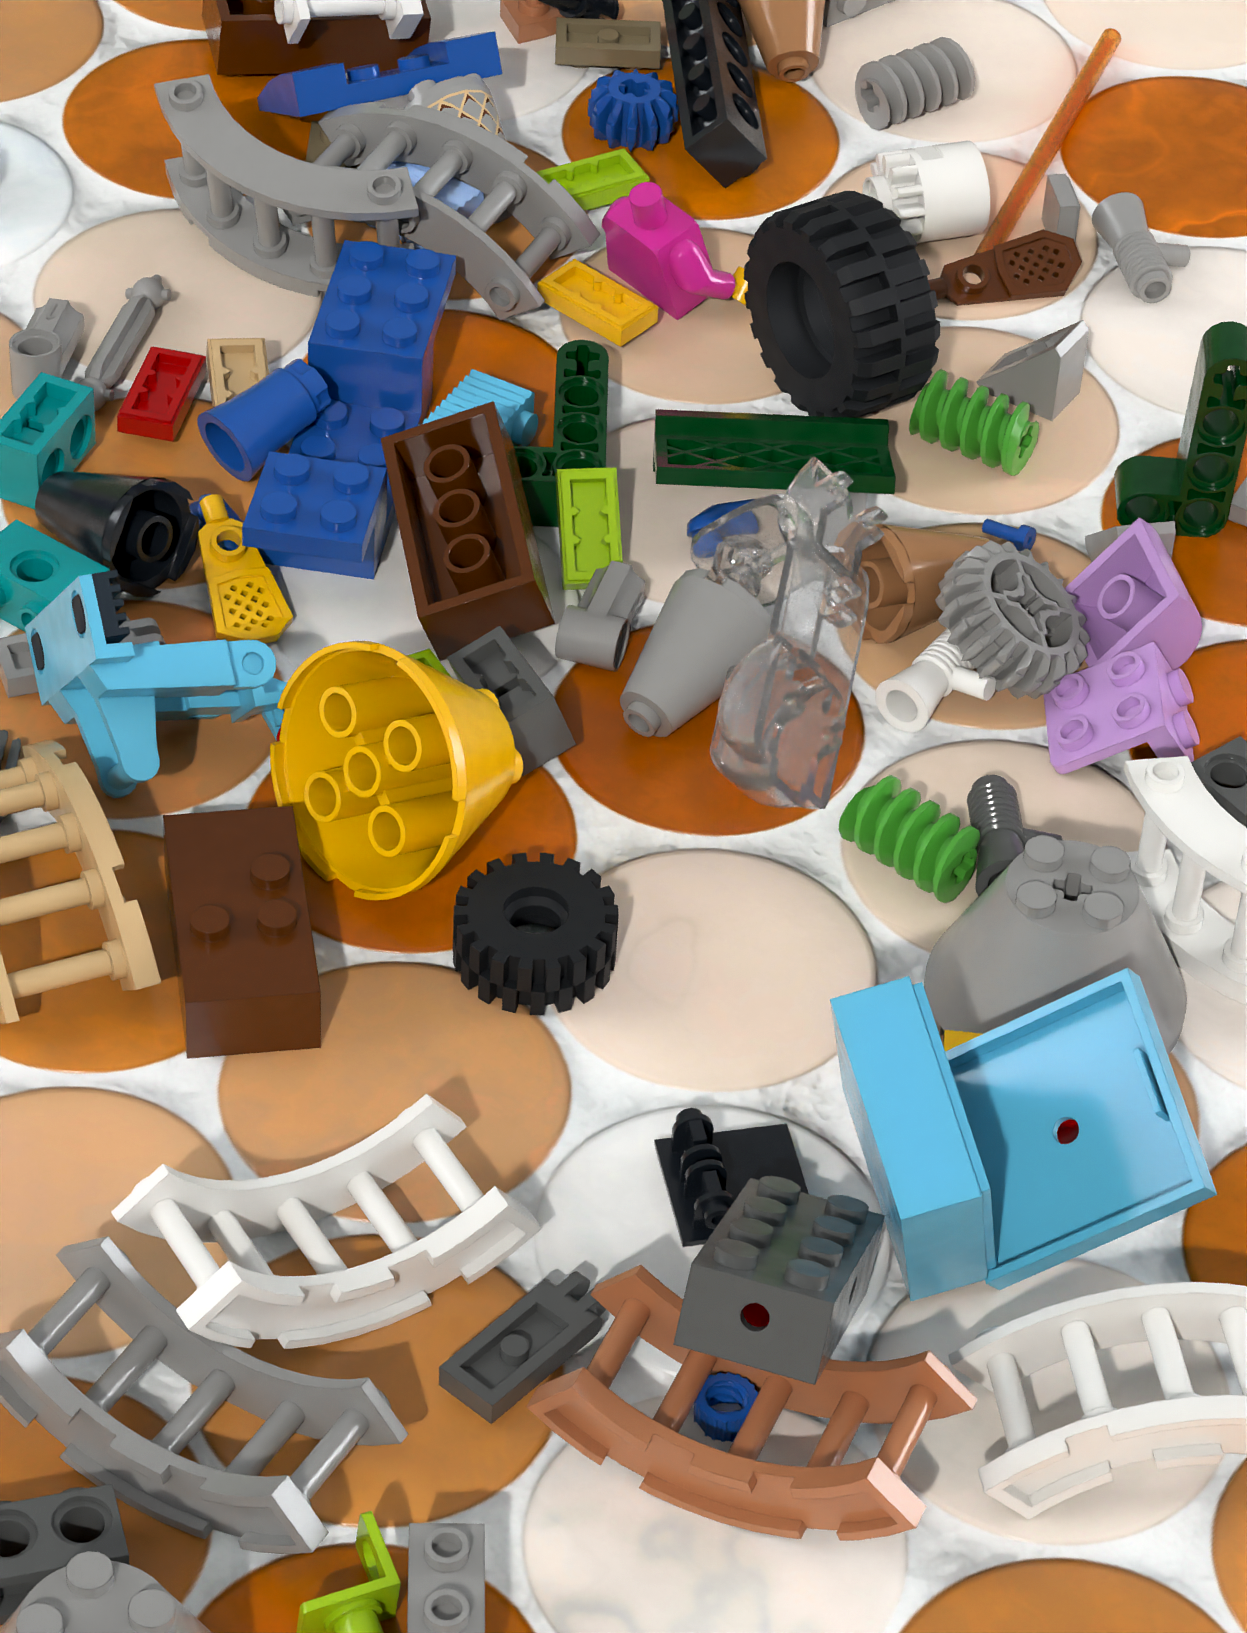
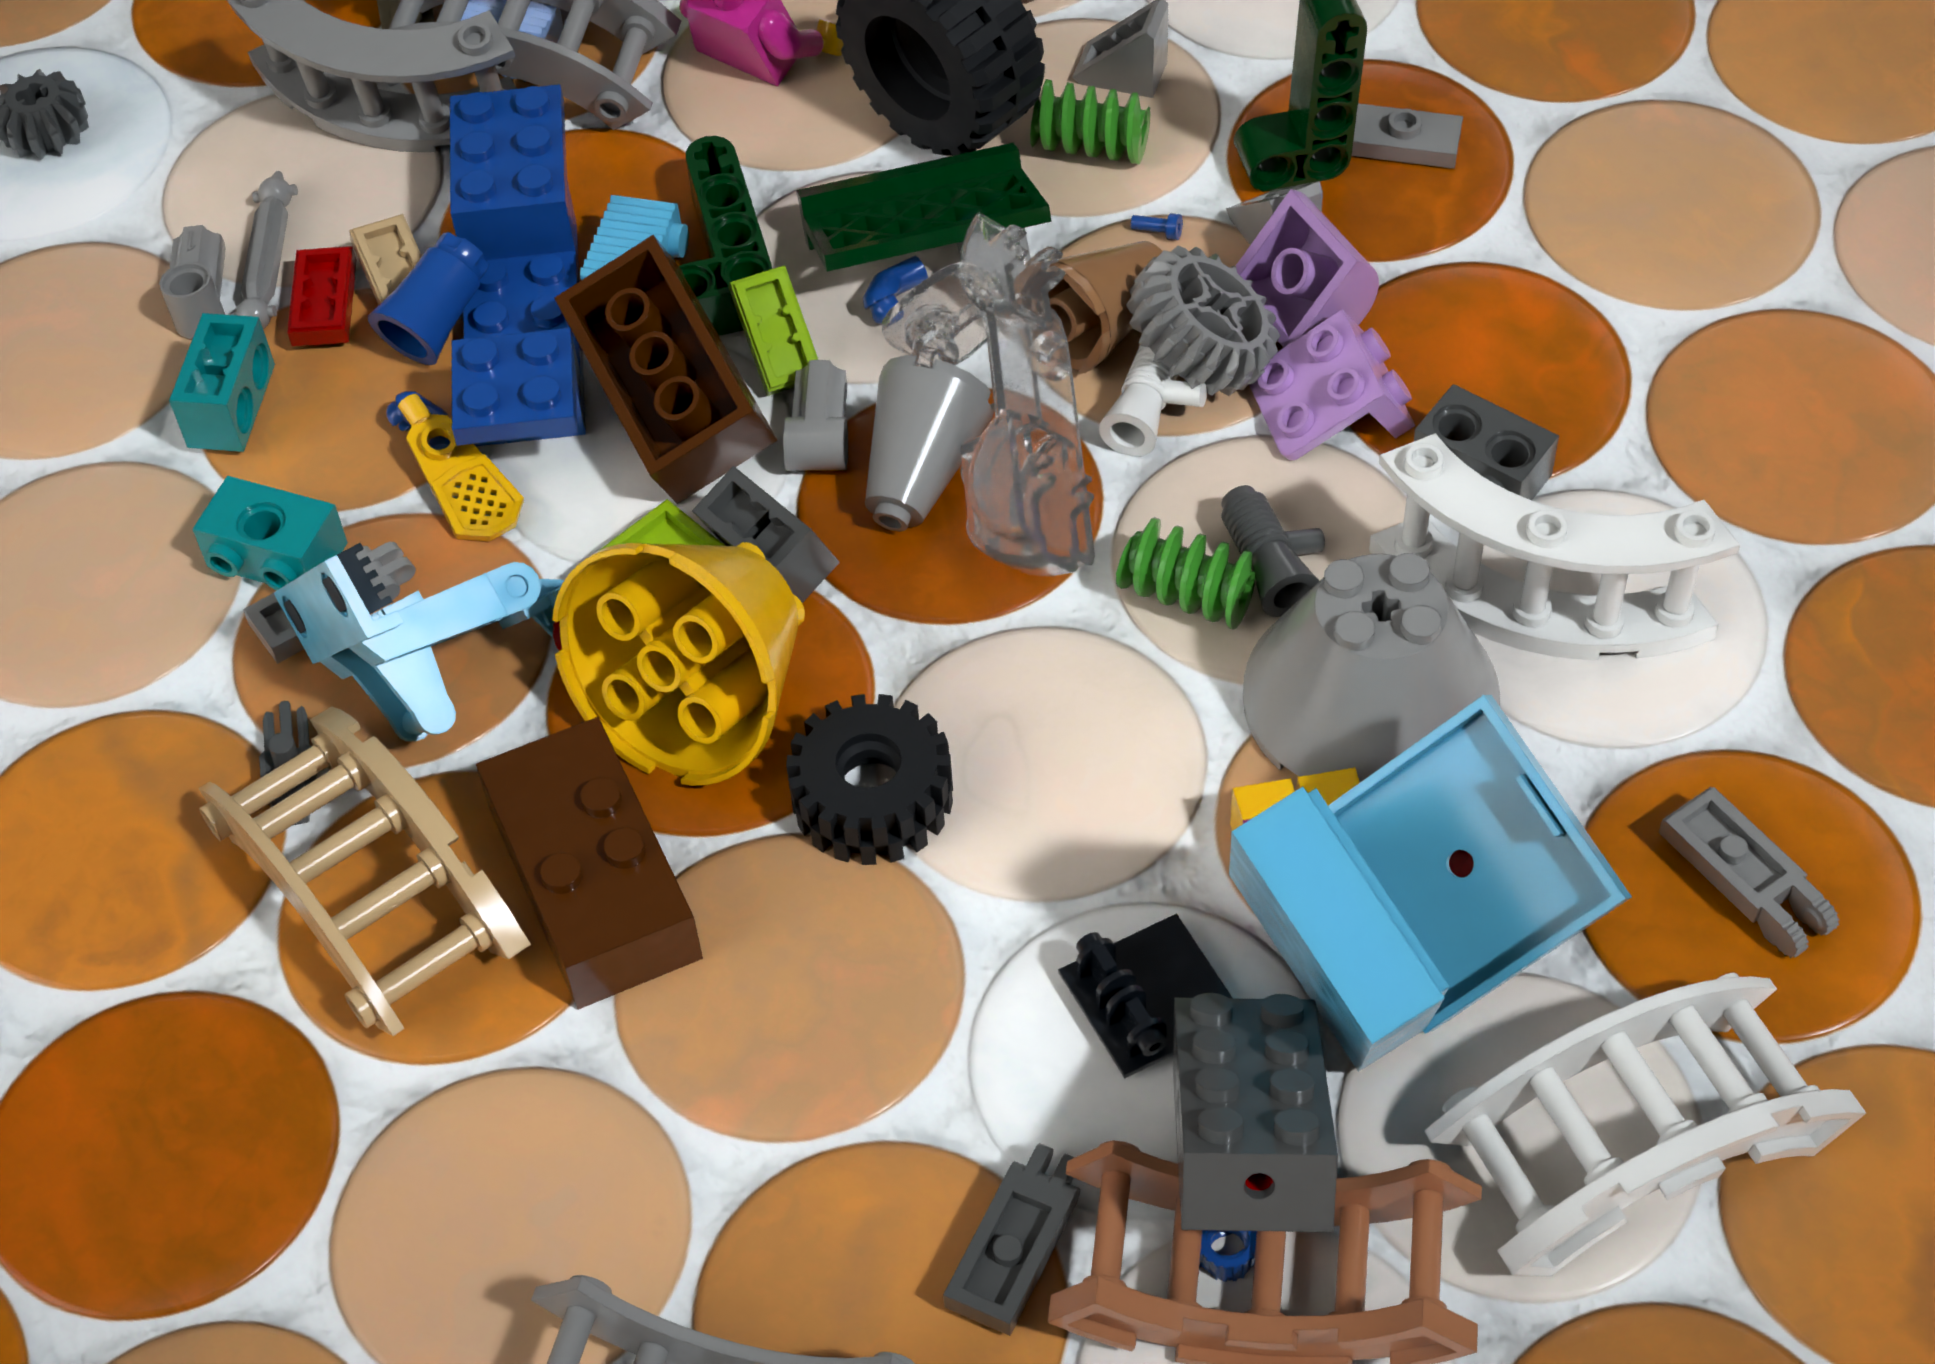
camera: 10 degrees left, 10 degrees up
(122, 523) = (329, 451): black cone -> none
(340, 1302) = (830, 1242): white fence -> none
(598, 302) = (700, 90): yellow plate -> none

